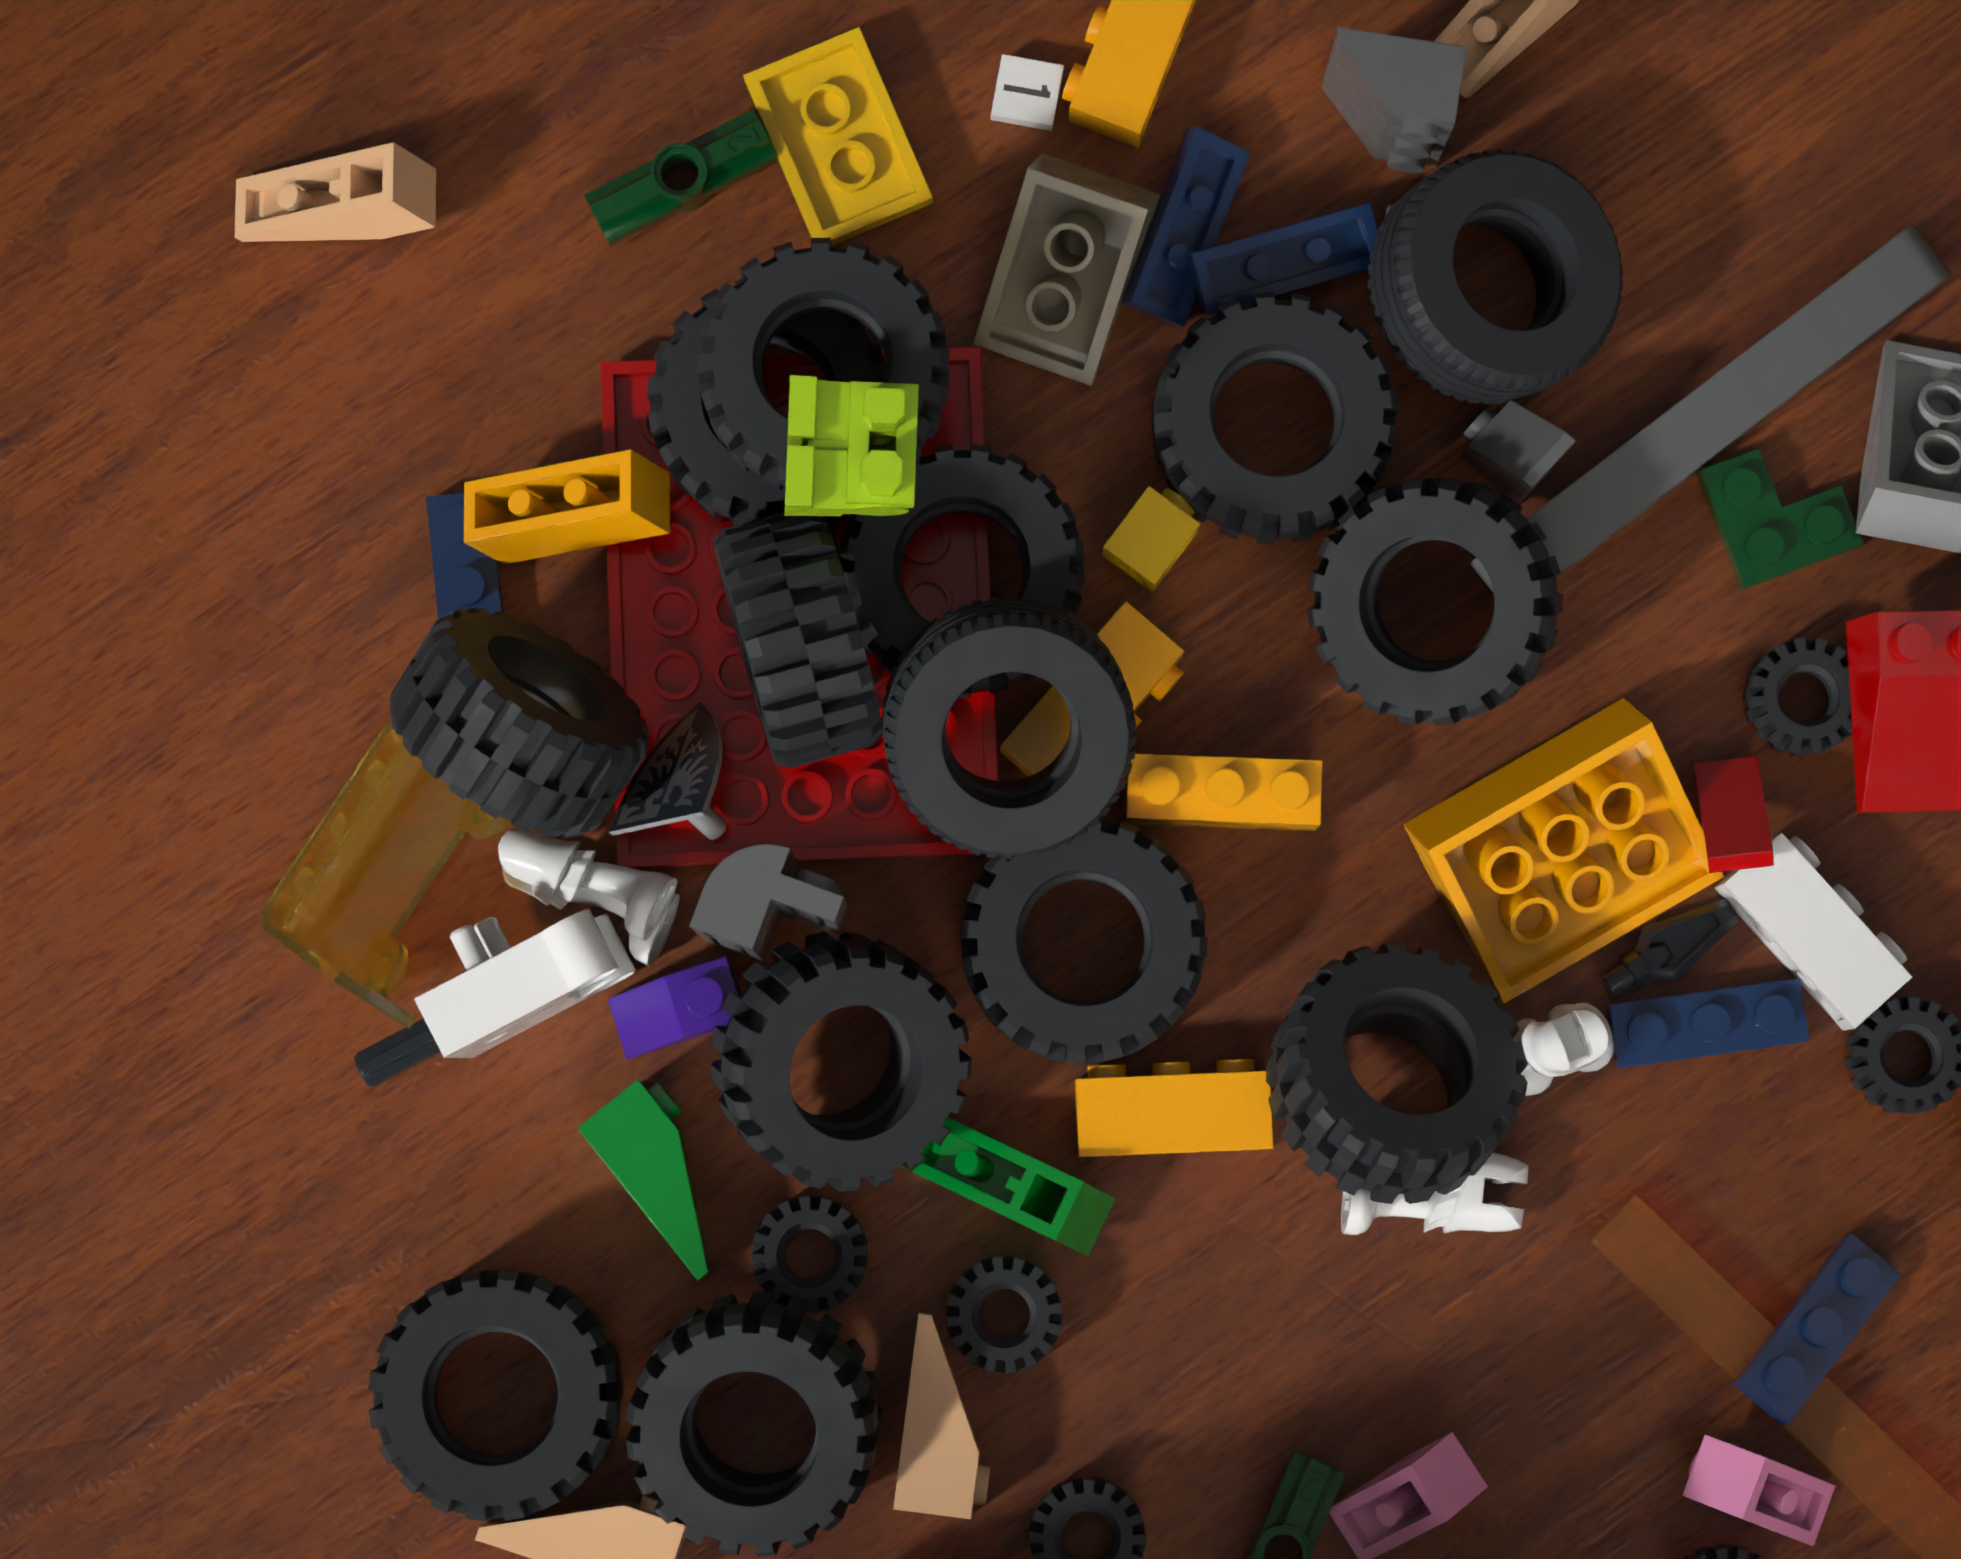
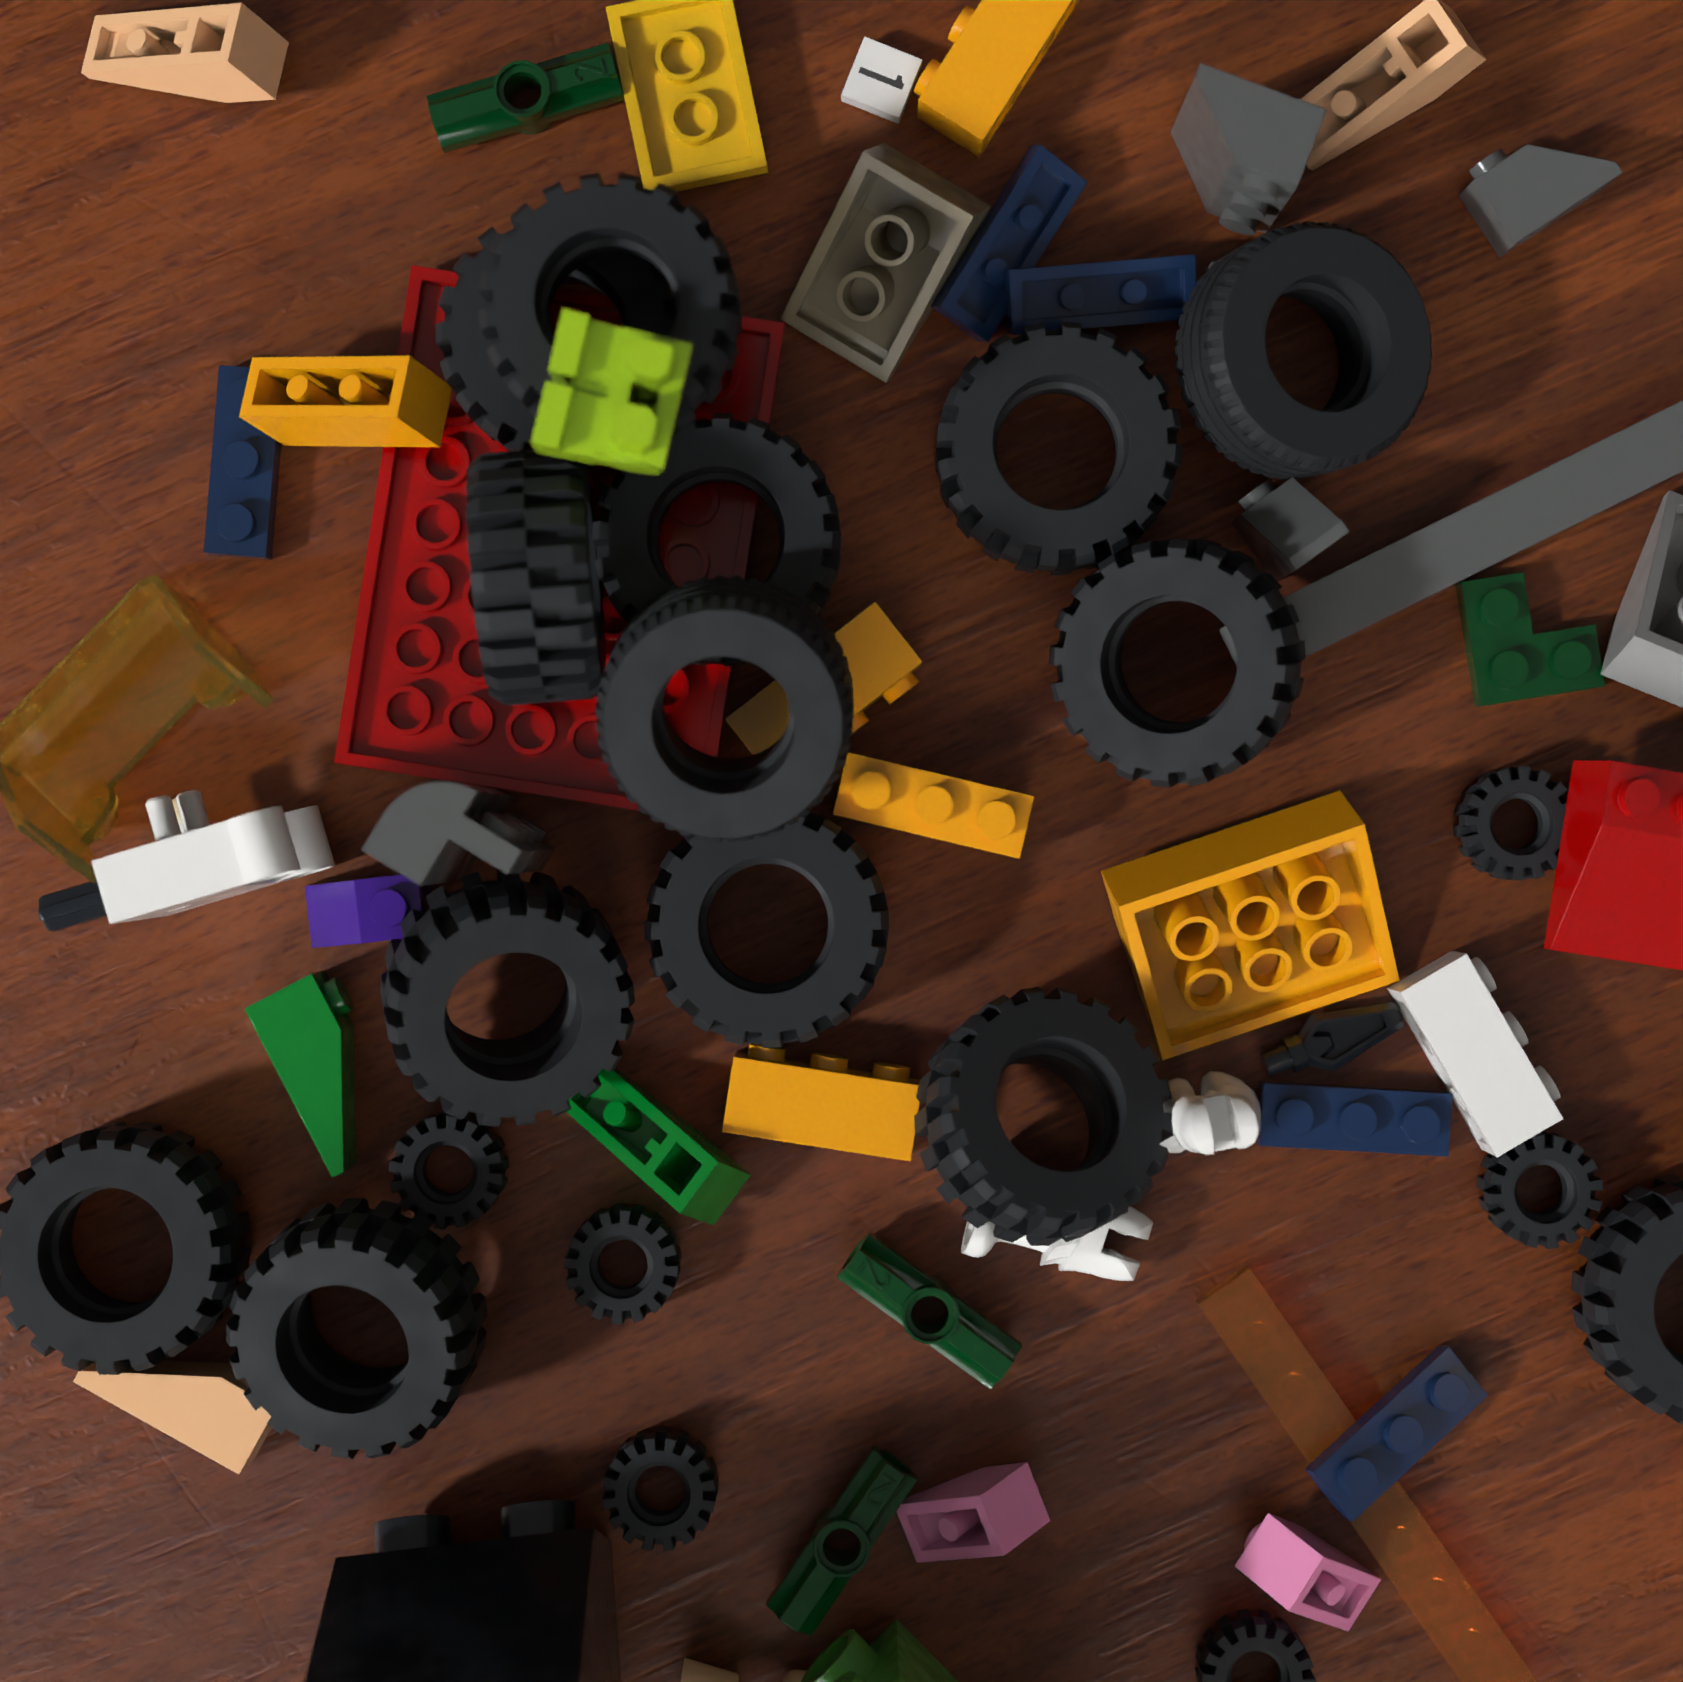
camera: 10 degrees right, 5 degrees up
(518, 722) = (249, 606): black tyre -> none
(562, 874) = (278, 760): white piece -> none
(677, 780) = (402, 691): shield -> none
(938, 1445) = (537, 1371): light nougat slope -> none
(1152, 537) = (915, 542): yellow brick -> none
(1361, 1315) = (962, 1333): none -> dark green piece
(1686, 78) = (1530, 191): none -> dark grey slope
(1733, 814) = (1423, 926): red tile -> none

